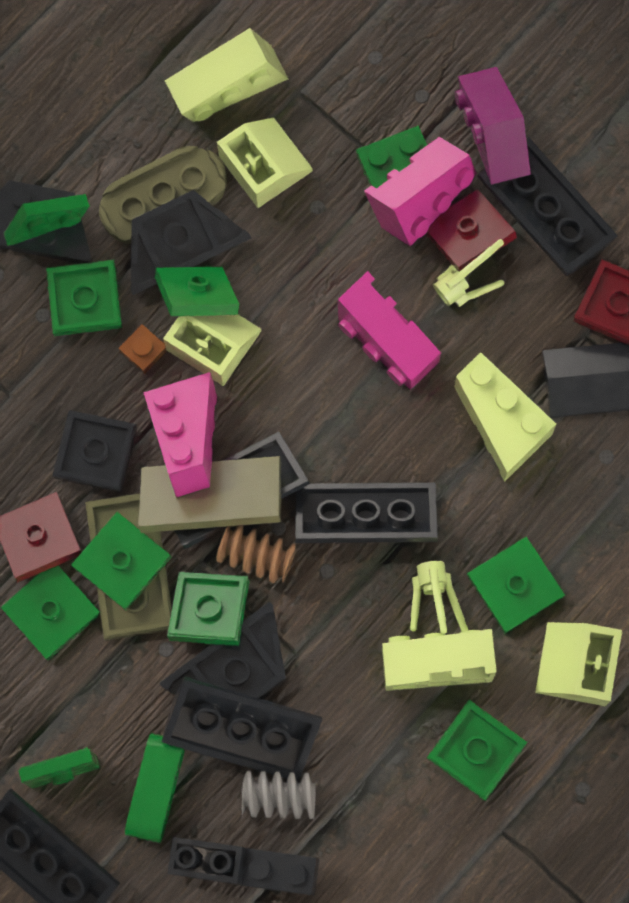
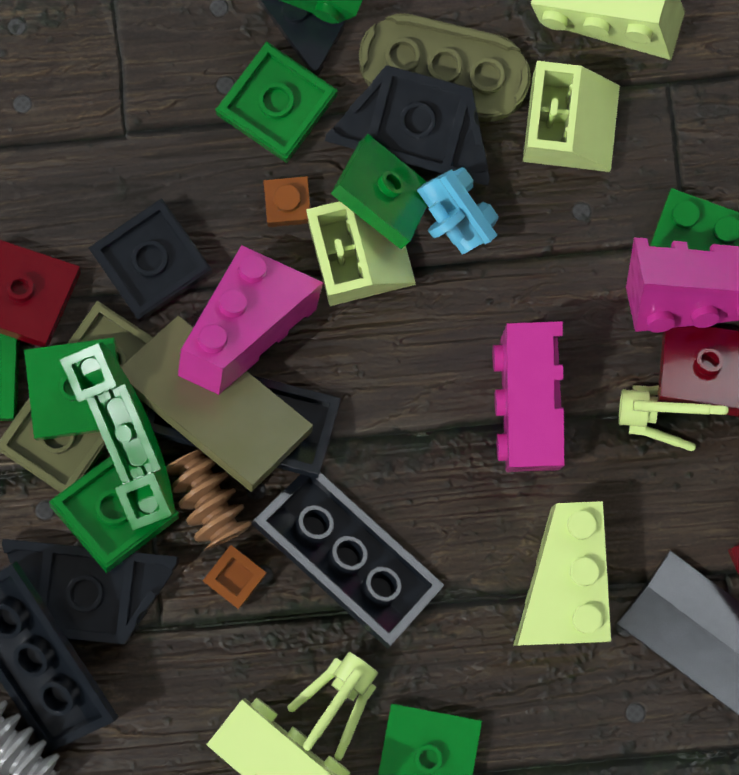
camera: 40 degrees right, 5 degrees up
(176, 555) = (126, 433): none -> slope
(248, 267) = (456, 211): none -> medium azure hips
(313, 583) = (235, 577): none -> dark orange plate

